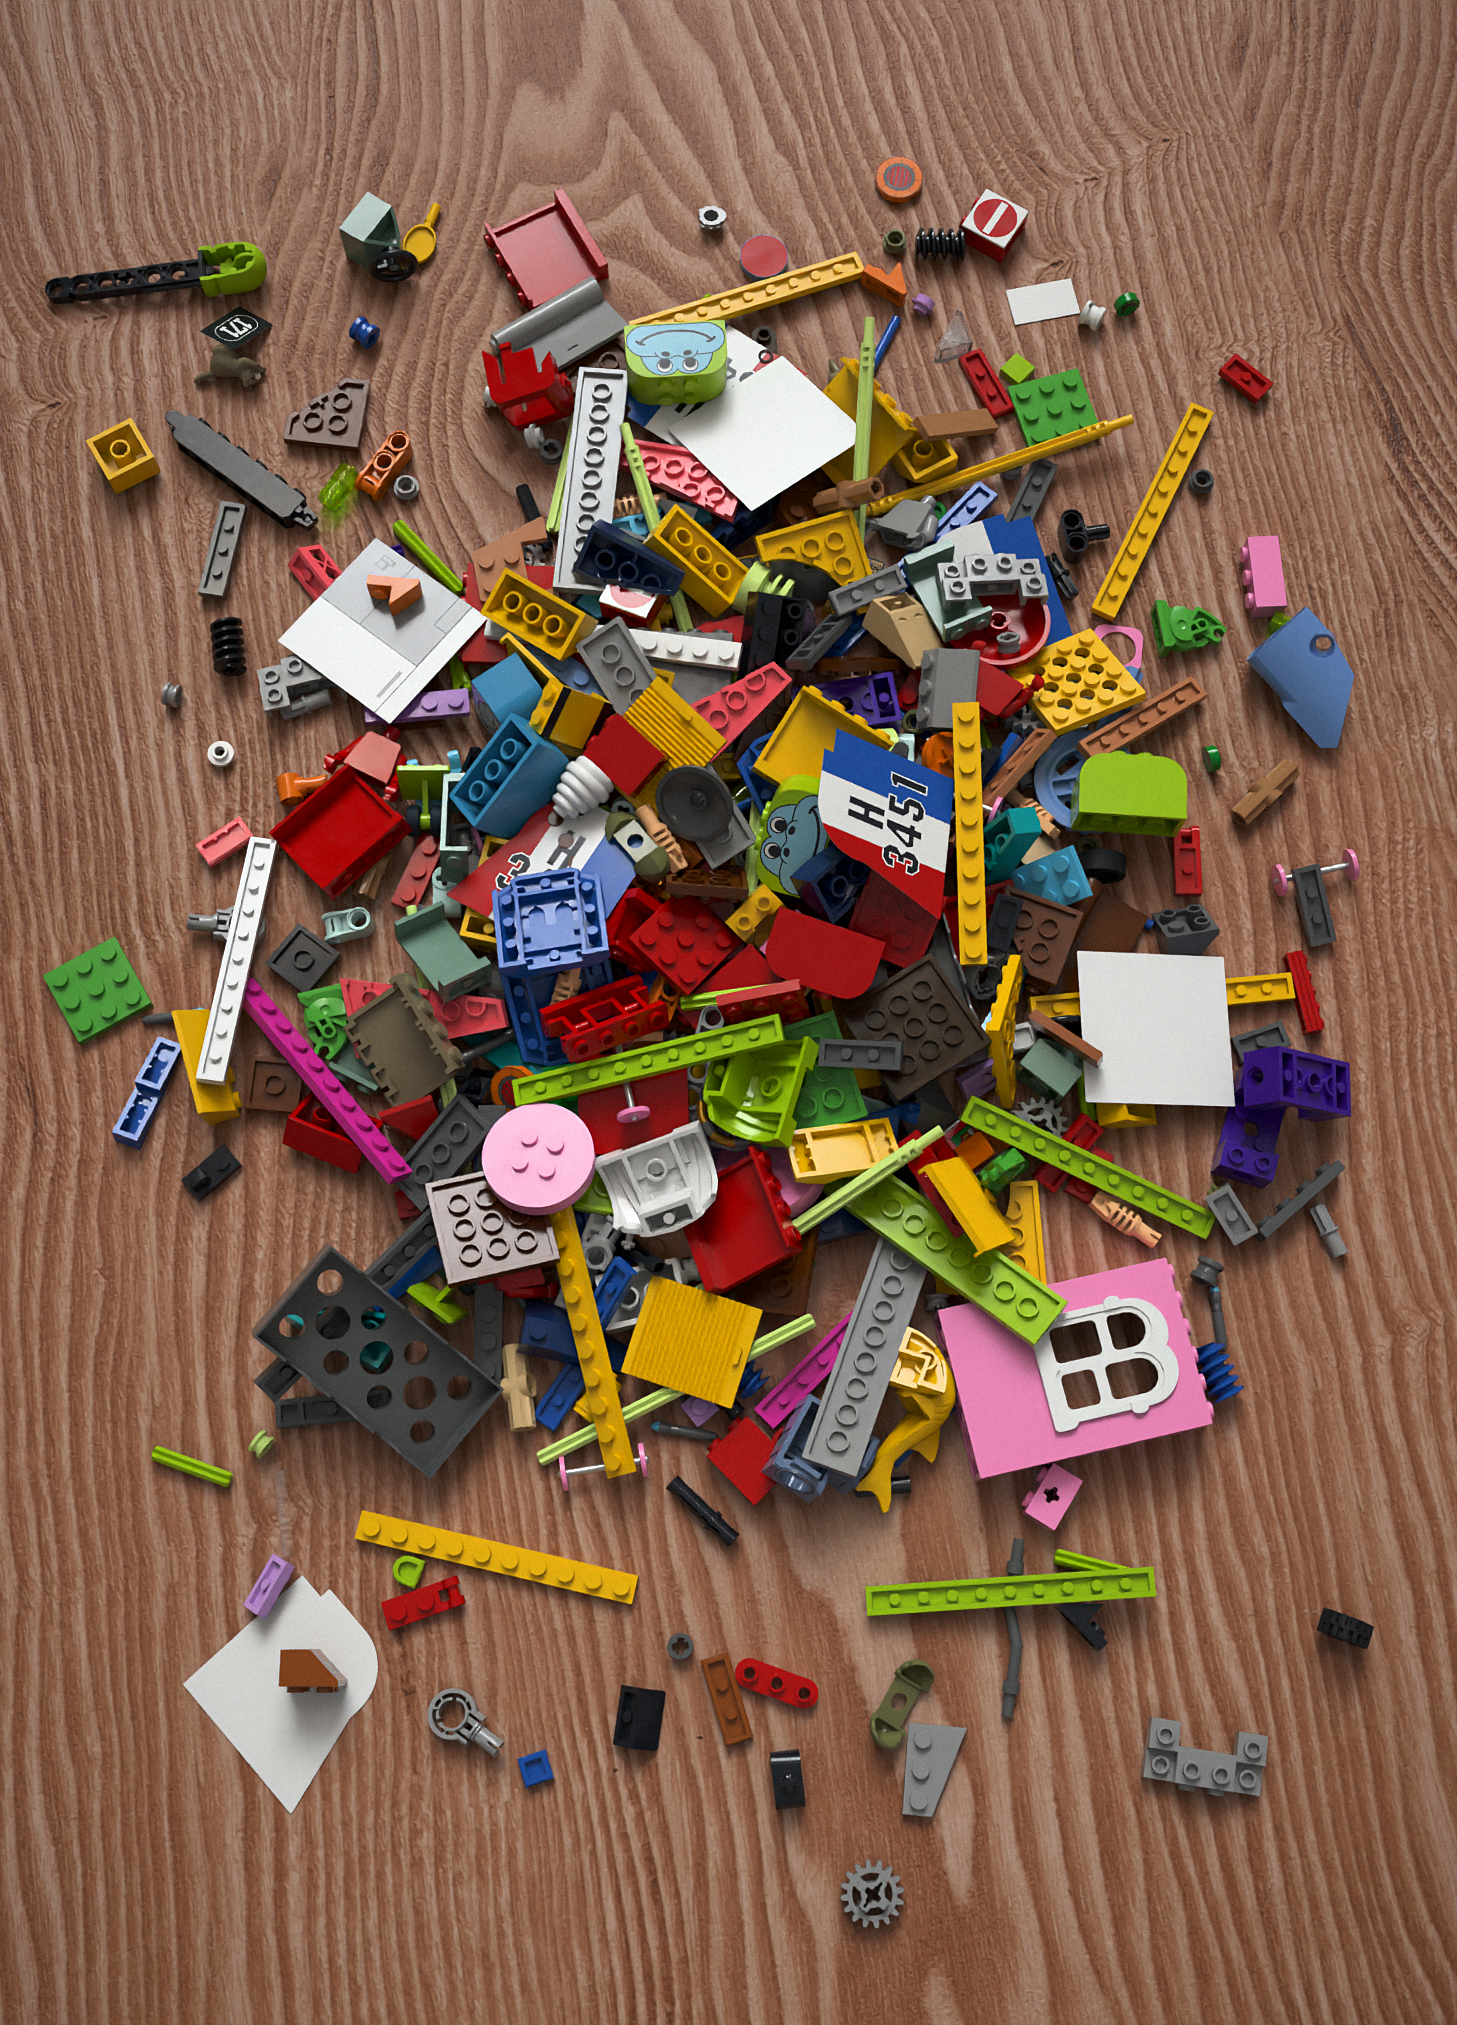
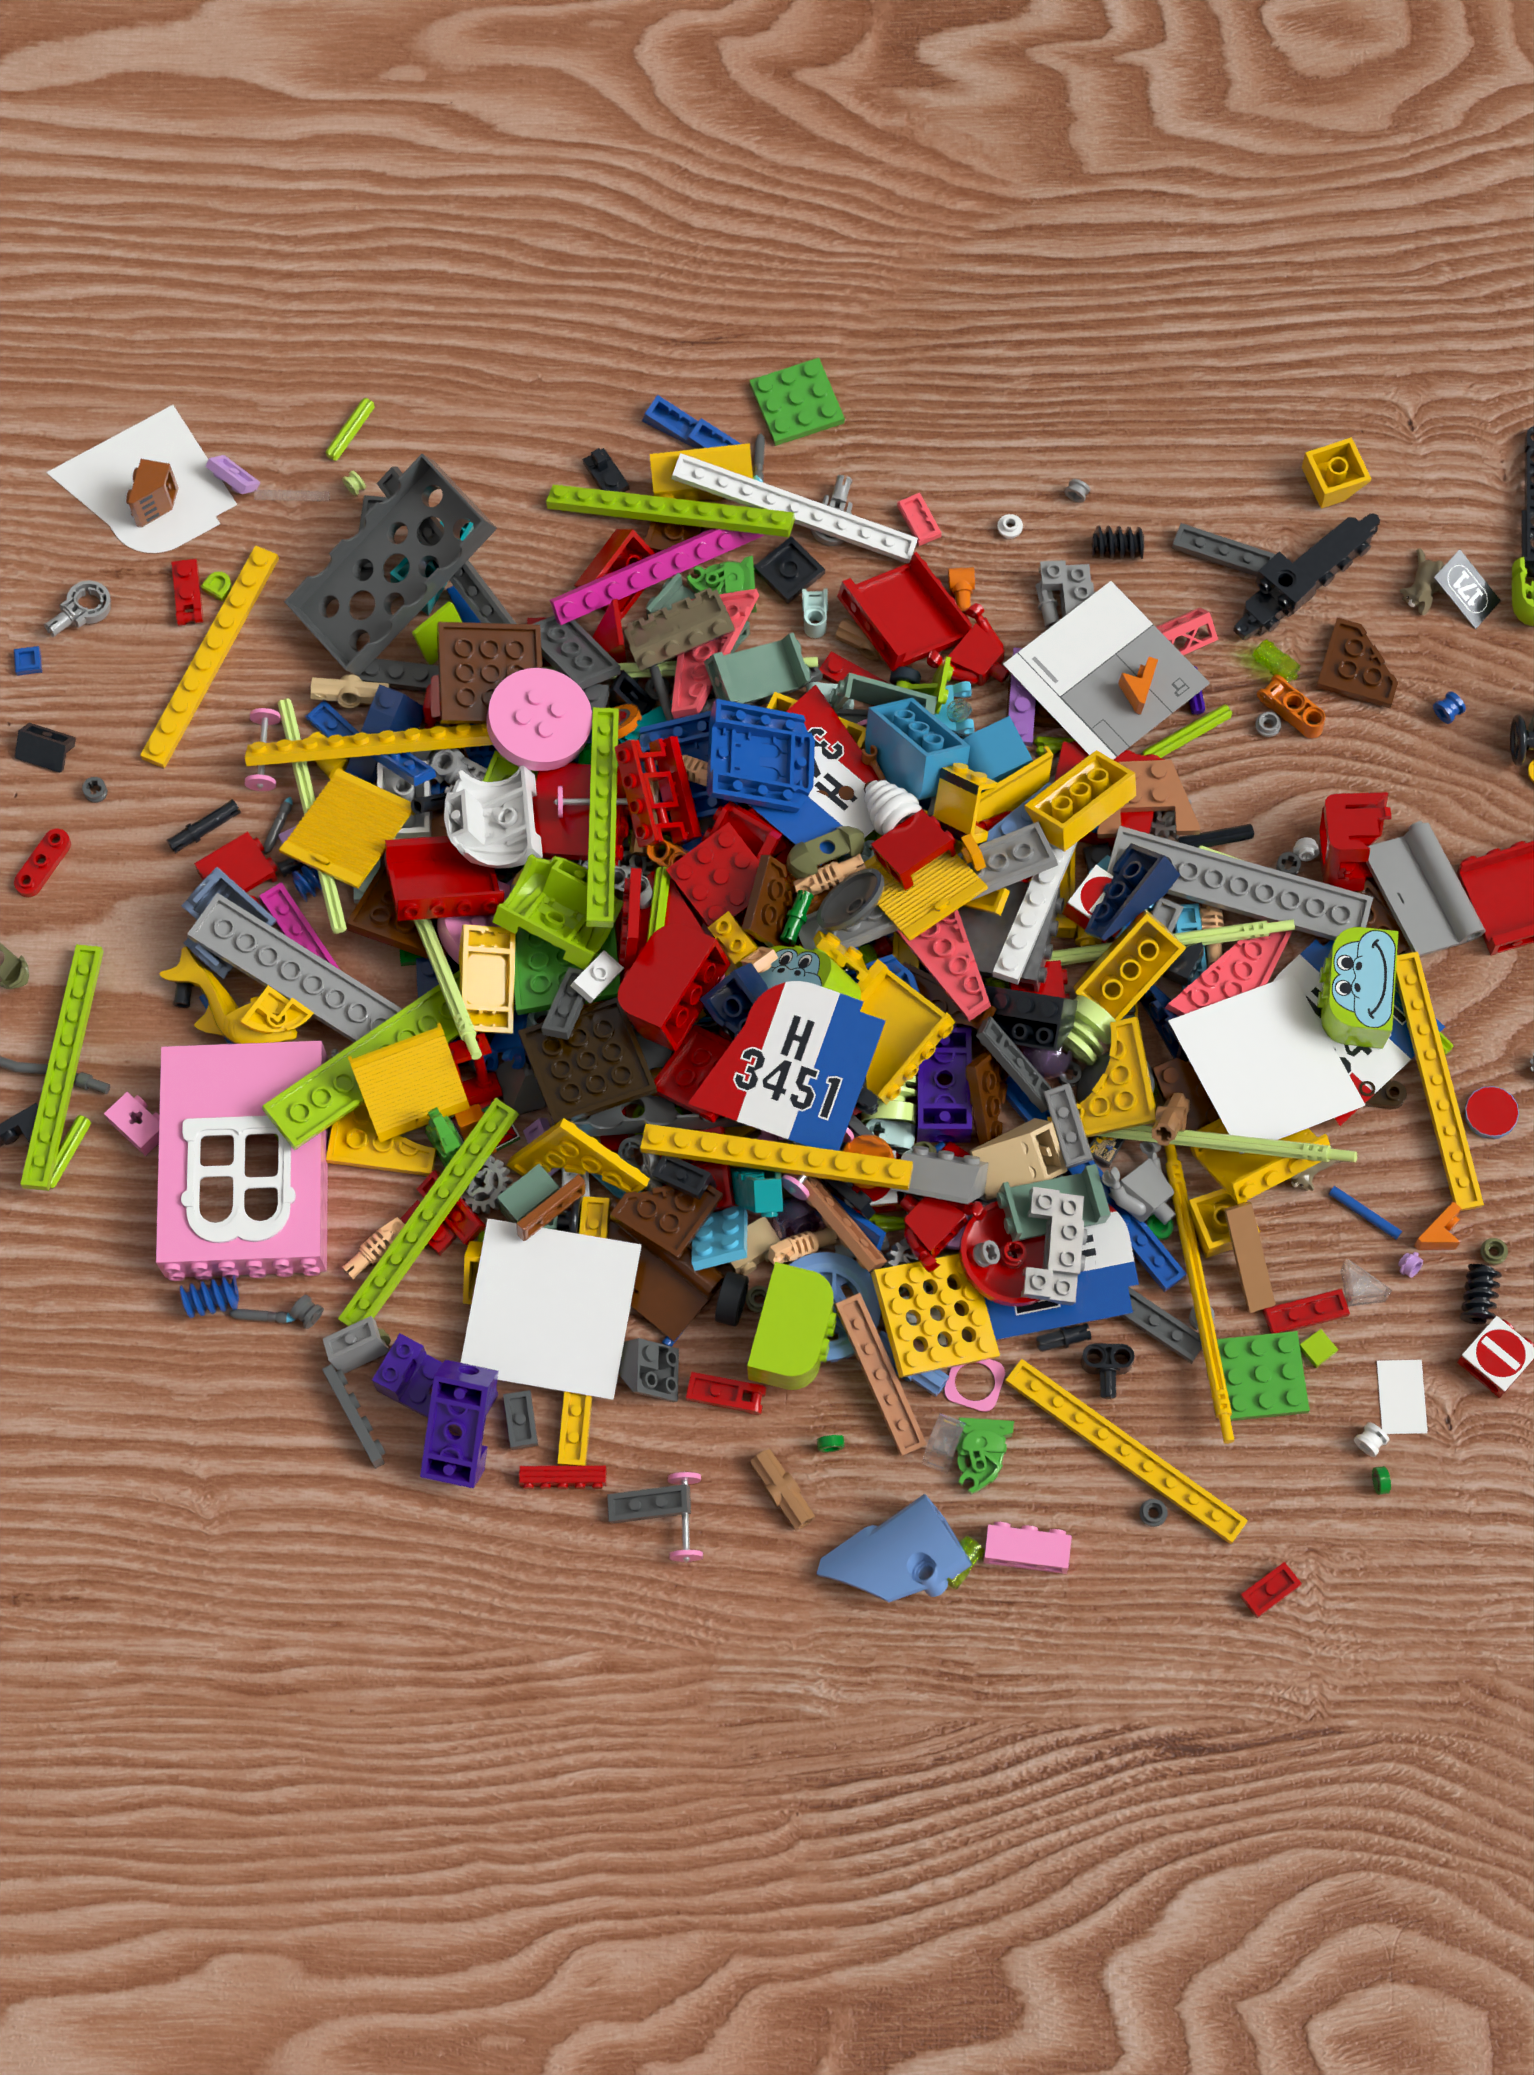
camera: 105 degrees right, 5 degrees down
(255, 1089) = (671, 510): none -> lime plate
(261, 464) = (1280, 570): none -> black brick
(443, 755) = (958, 710): none -> clear light blue plate
(524, 829) = (871, 760): none -> dark orange hand
(623, 696) = (972, 853): none -> light orange plate
(712, 861) = (796, 917): none -> green pin
(726, 1699) = (40, 820): dark orange tile -> none
(753, 801) = (840, 954): none -> yellow wing
(777, 875) = (761, 959): none -> light nougat plate
(827, 1031) = (597, 976): none -> white plate
(1189, 657) = (943, 1443): none -> clear slope
(1328, 1230) = (318, 1439): light grey axle -> none

